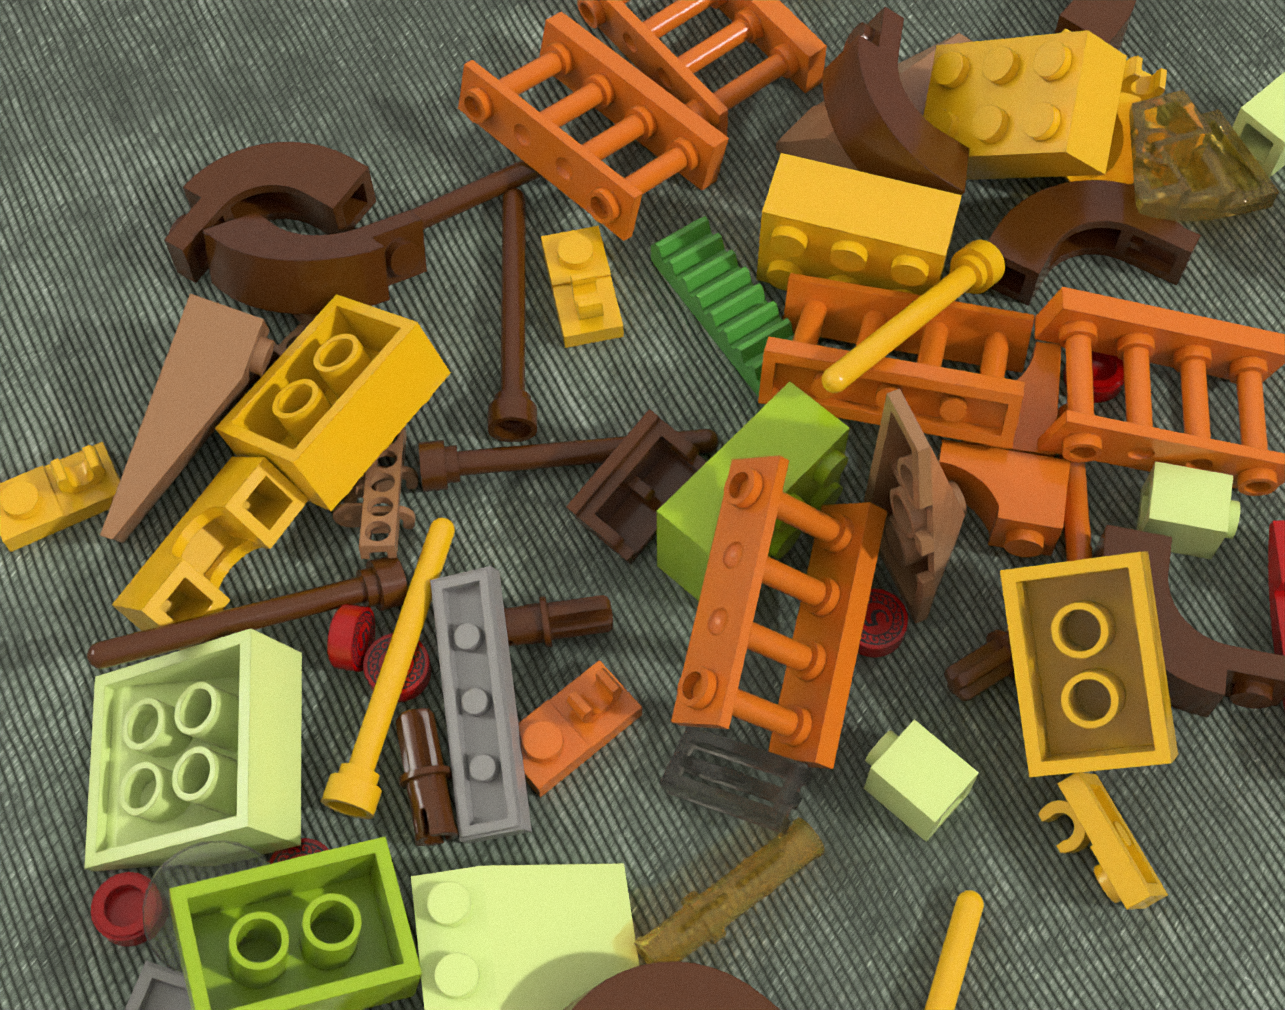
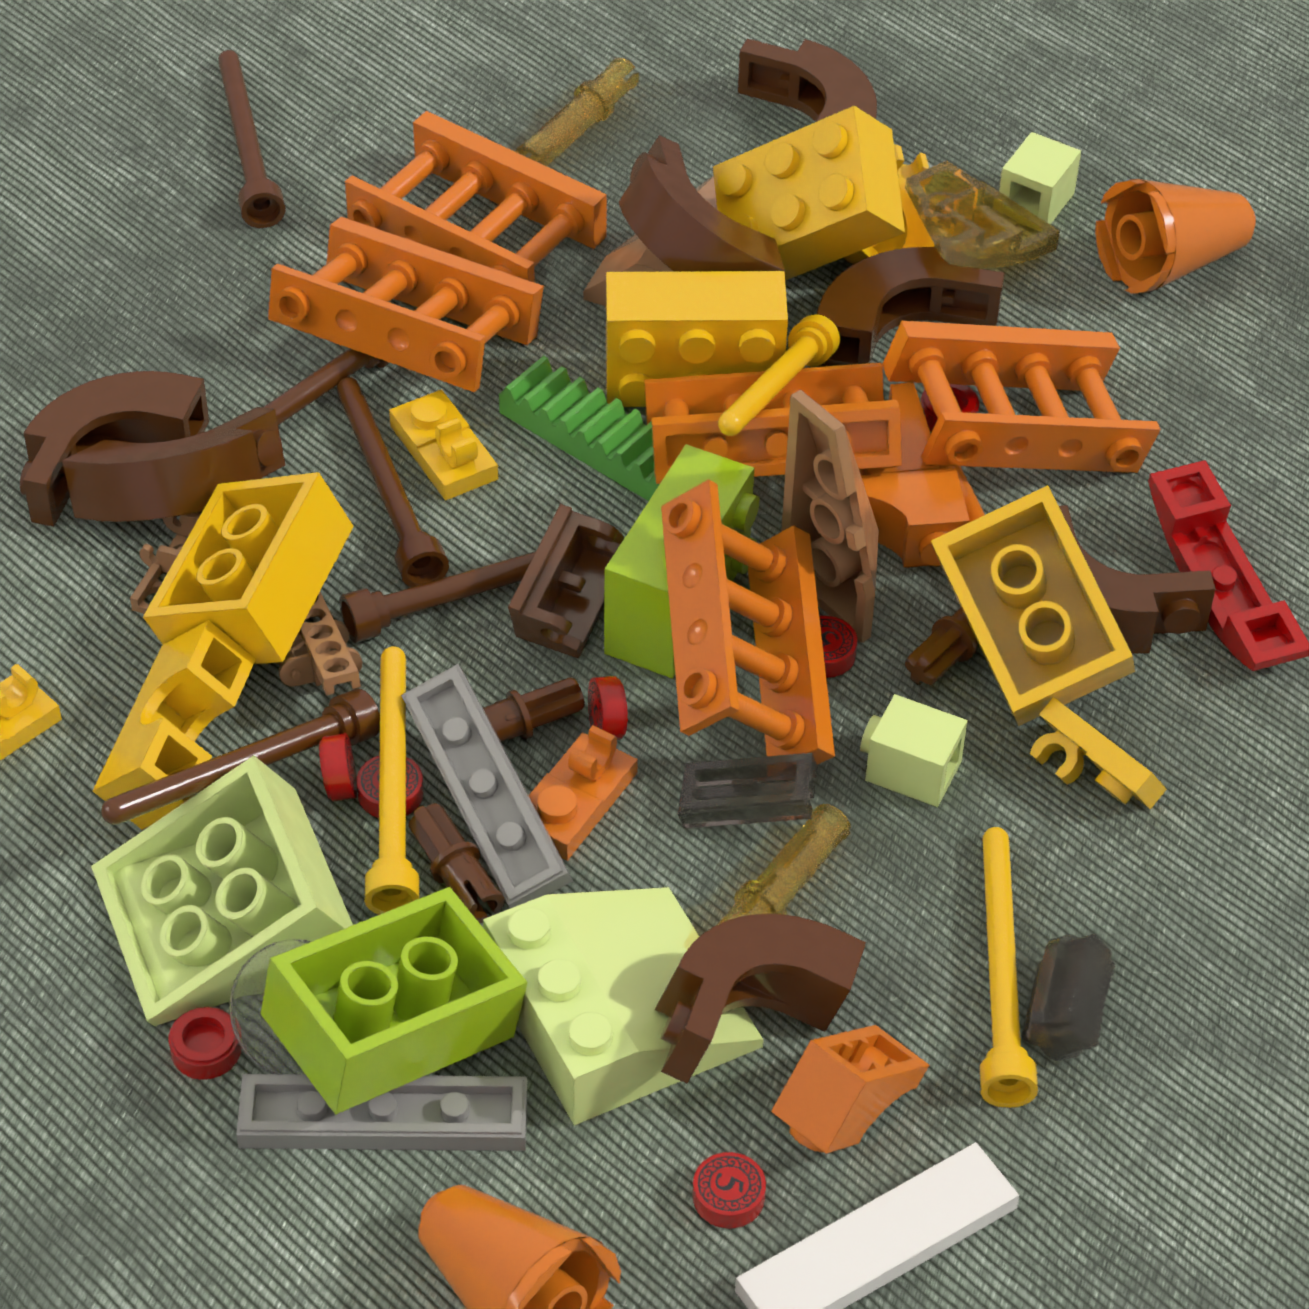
camera: 20 degrees left, 15 degrees down
(198, 385) = (116, 578): medium nougat wedge -> none
(631, 642) = (608, 705): none -> red tile
(1189, 507) = (1081, 482): yellowish green brick -> none

